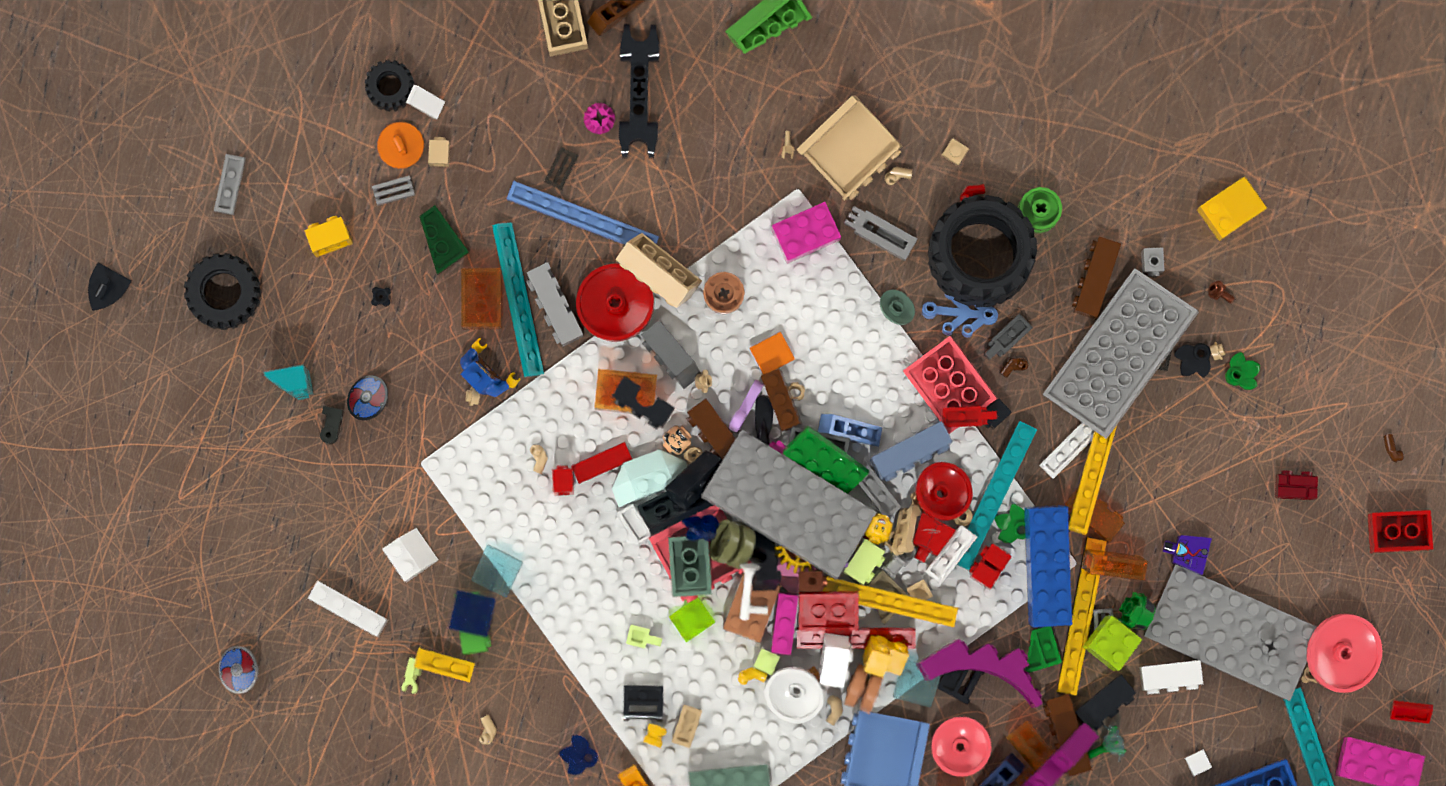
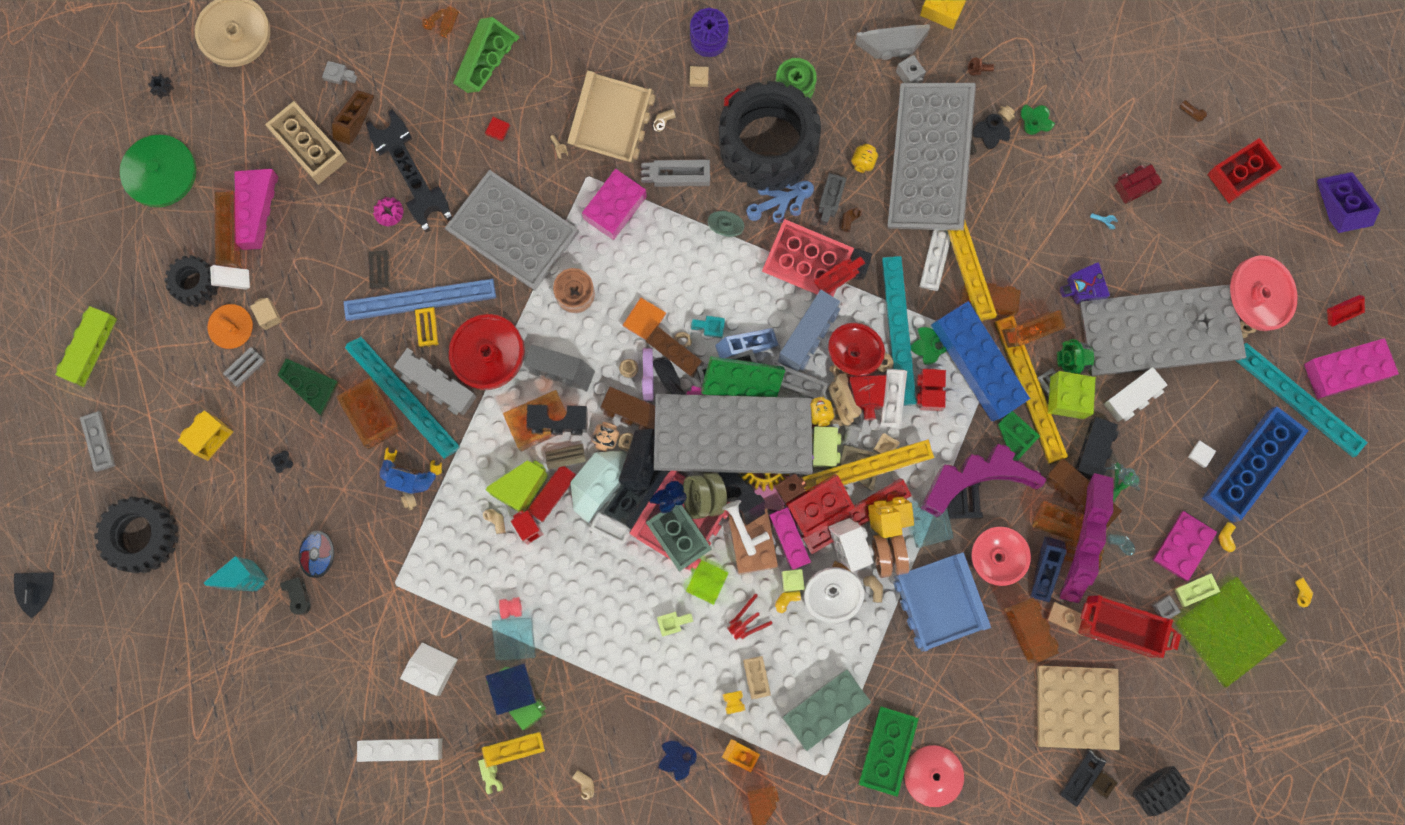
camera: 25 degrees left, 5 degrees down
(265, 91) = (86, 346): none -> lime brick
(446, 56) = (226, 250): none -> clear orange brick
(483, 40) = (252, 206): none -> dark pink wedge
(509, 542) = (510, 607): none -> coral wheel
(568, 262) = (428, 342): none -> yellow tile
(577, 441) = (519, 486): none -> lime slope
(632, 436) = (565, 456): none -> dark tan tile
(643, 697) = (704, 673): black plate -> none
(658, 270) = (507, 303): tan brick -> none
(695, 675) = (738, 628): none -> red plant
(700, 201) = (512, 230): none -> light grey plate
(703, 381) = (599, 374): tan plate -> none
(732, 390) = (628, 368): none -> tan plate
(741, 96) = (497, 129): none -> red tile
(828, 395) = (712, 326): none -> teal plate
(994, 126) = (712, 41): none -> dark purple wheel
(1060, 318) = (864, 158): none -> yellow head
(1097, 277) = (874, 109): reddish brown brick -> none
(1154, 223) = (892, 41): none -> light grey wedge
(1247, 504) = (1107, 220): none -> medium azure hand

